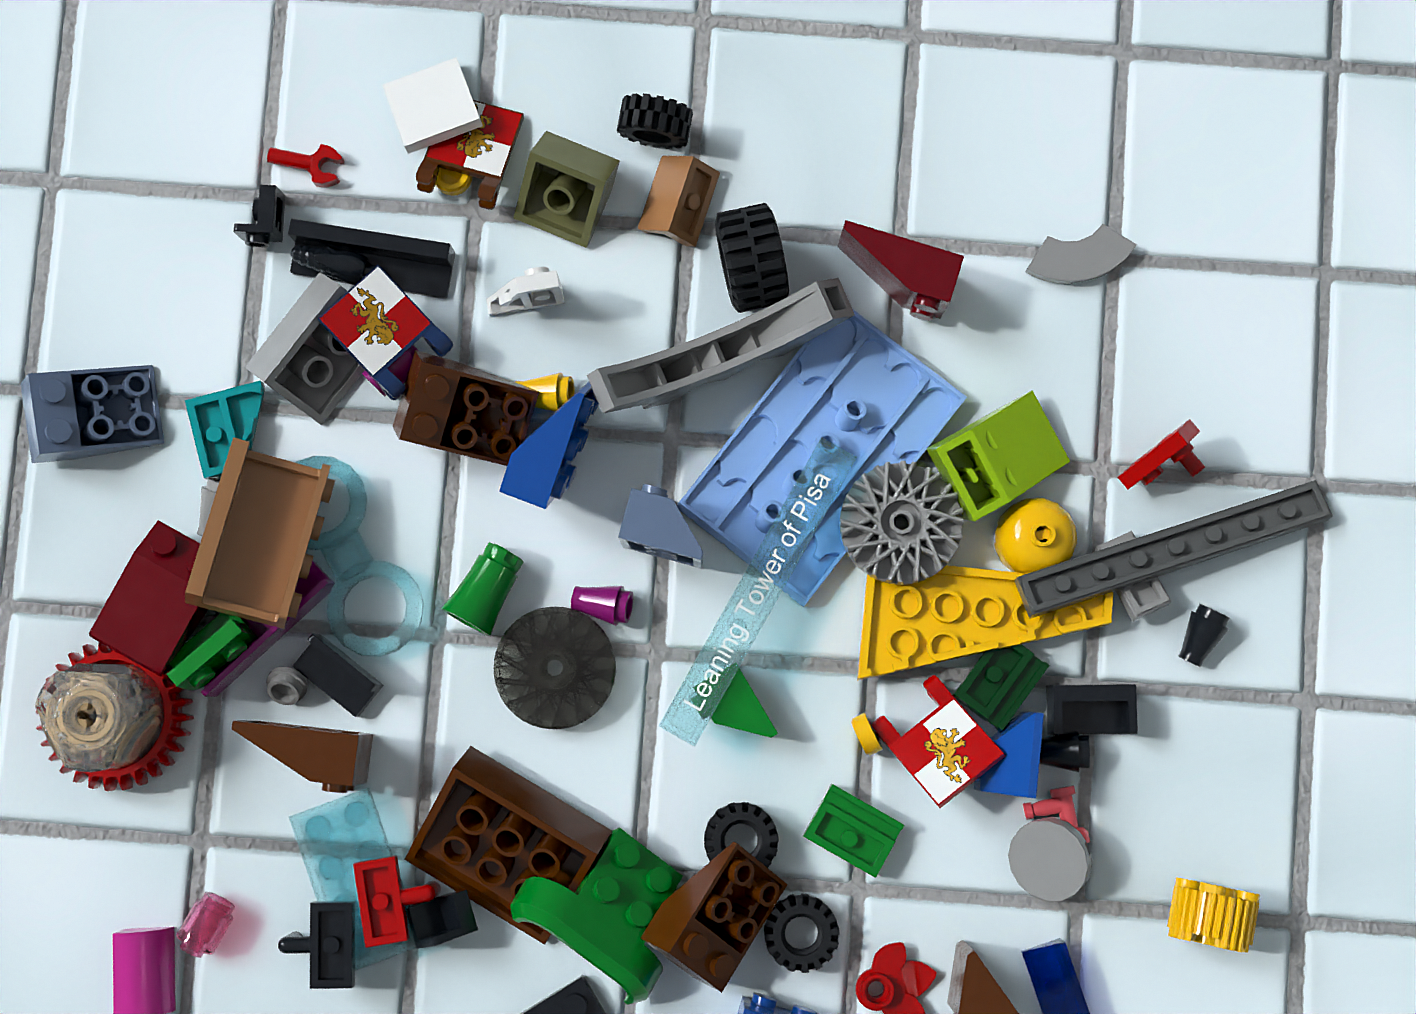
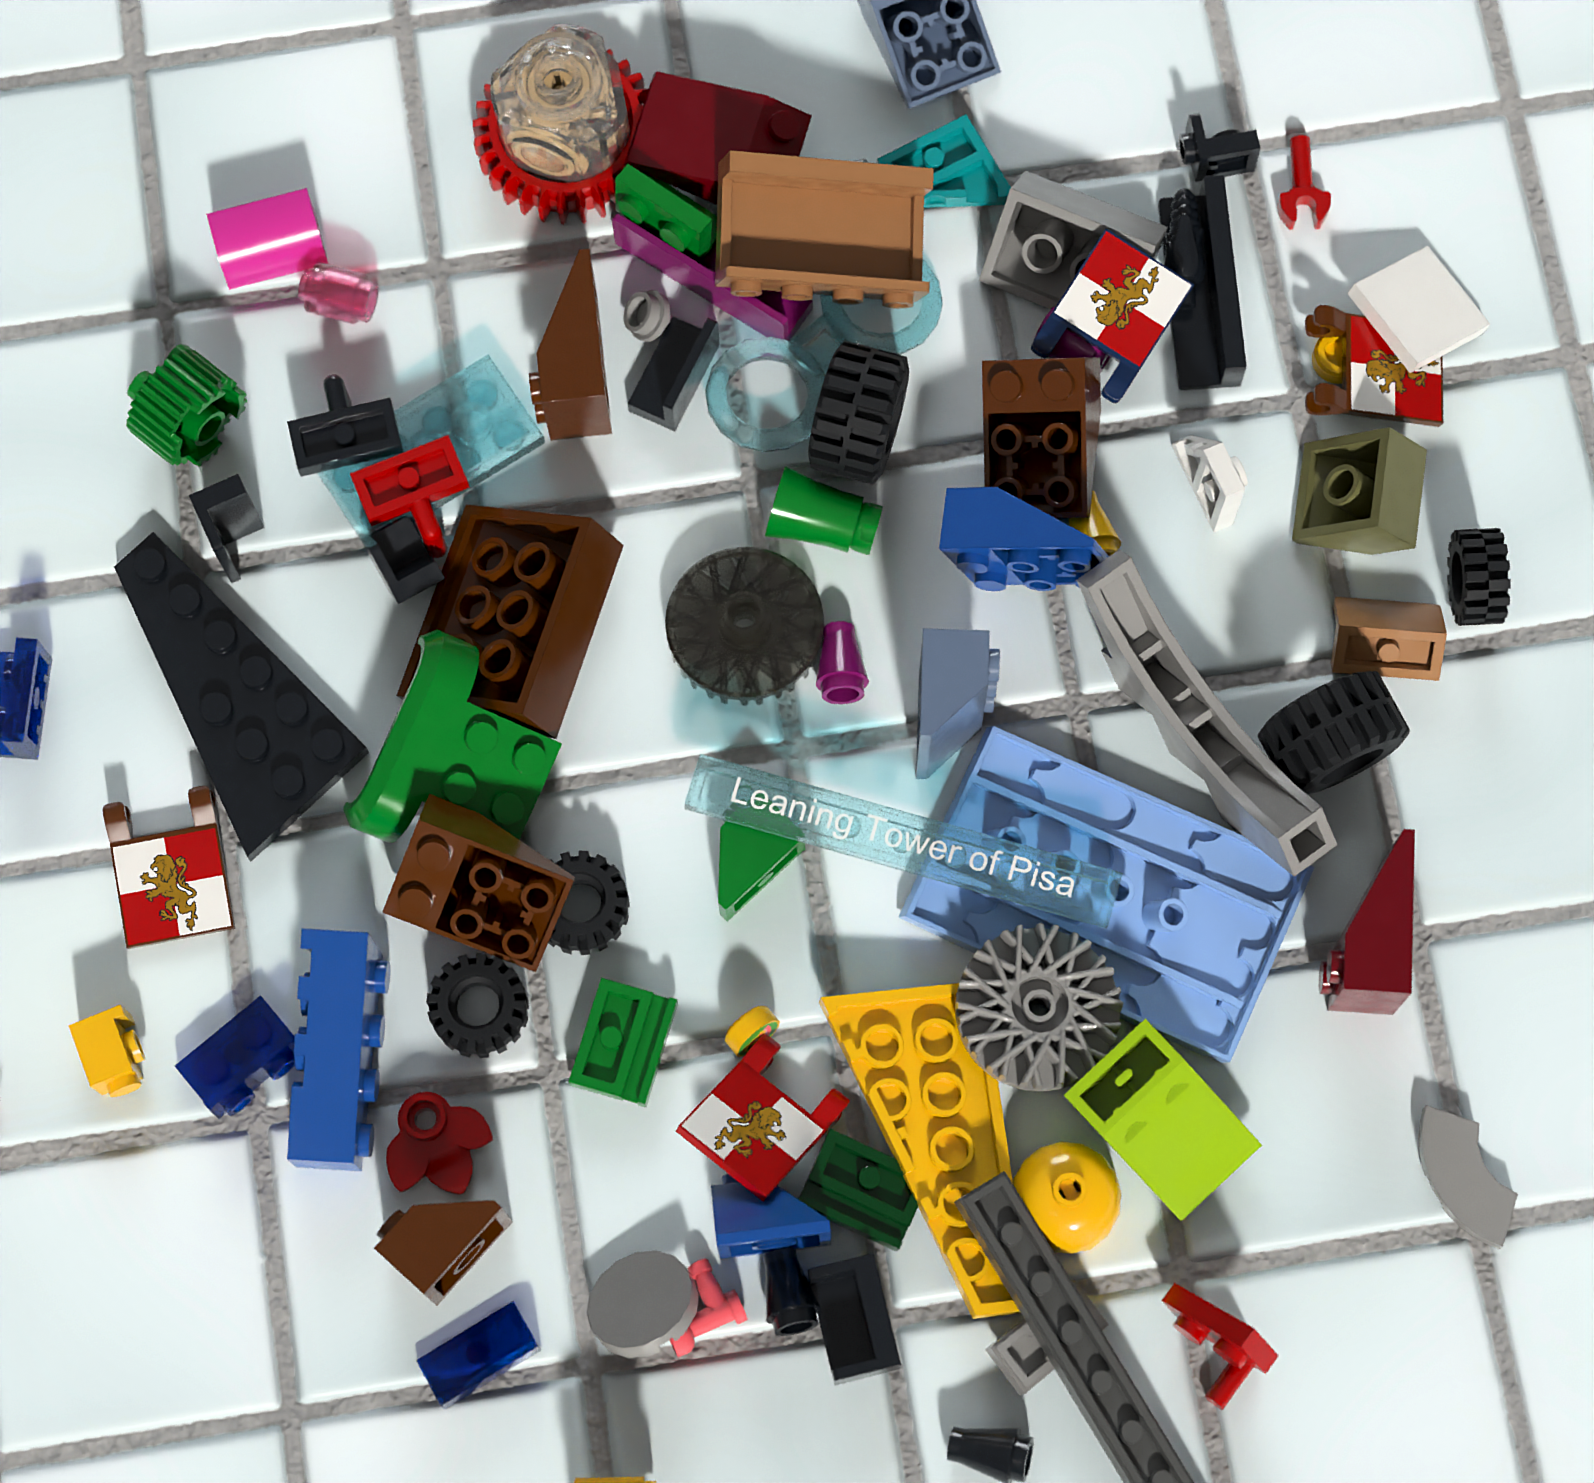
camera: 80 degrees right, 10 degrees down
(415, 542) = (858, 412): none -> black tyre

